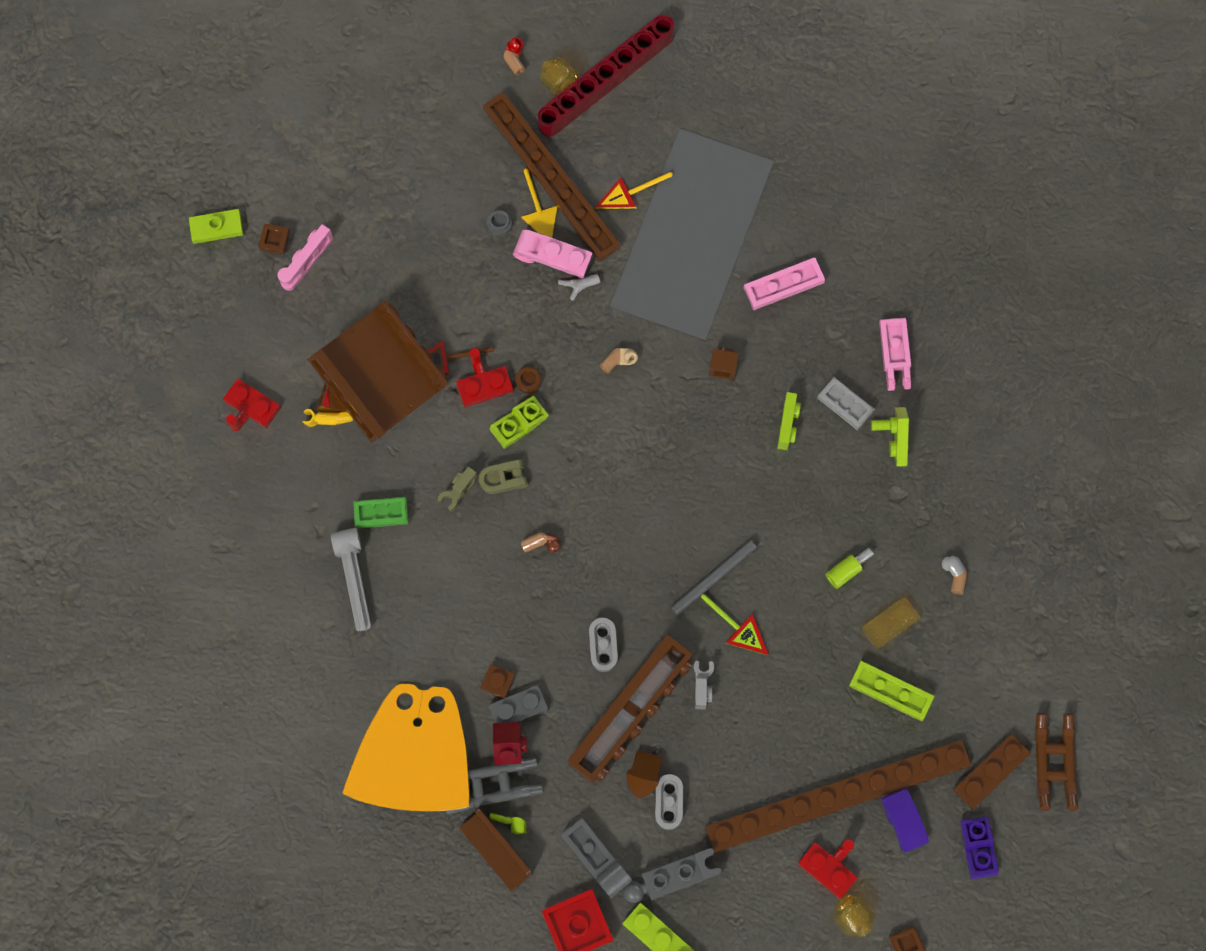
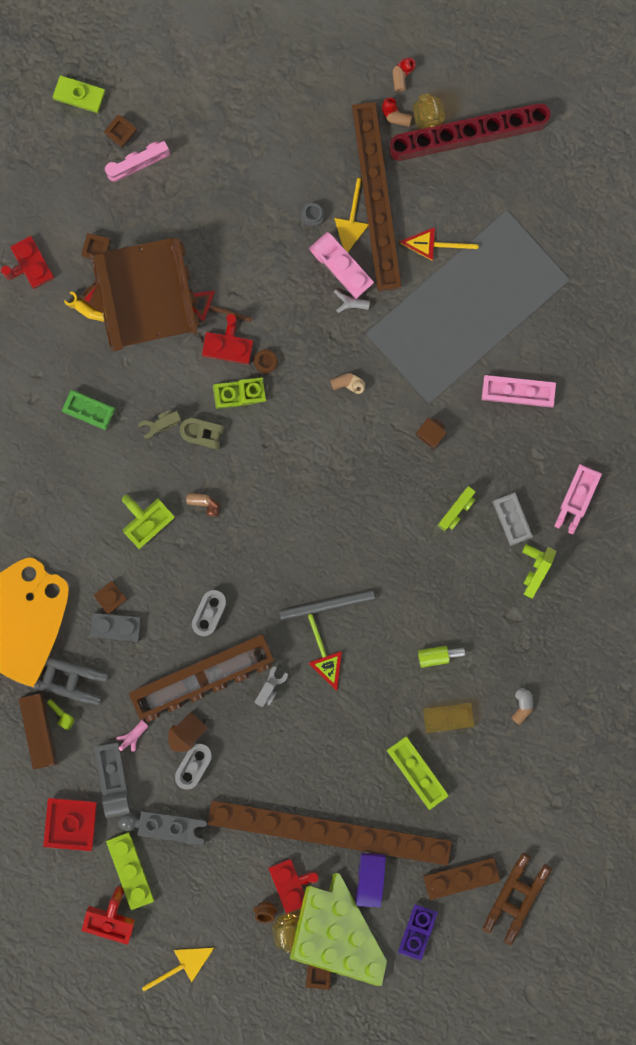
camera: 25 degrees right, 10 degrees up
(301, 354) = (94, 244): none -> reddish brown plate
(347, 546) = (47, 422): light grey axle -> none
(495, 589) = (147, 522): none -> lime plate
(508, 743) = (90, 653): dark red brick -> none
(525, 96) = (392, 113): none -> arm
(593, 805) = (132, 736): none -> bright pink bar
(819, 909) = (265, 912): none -> reddish brown plate
(902, 893) = (335, 935): none -> lime wing

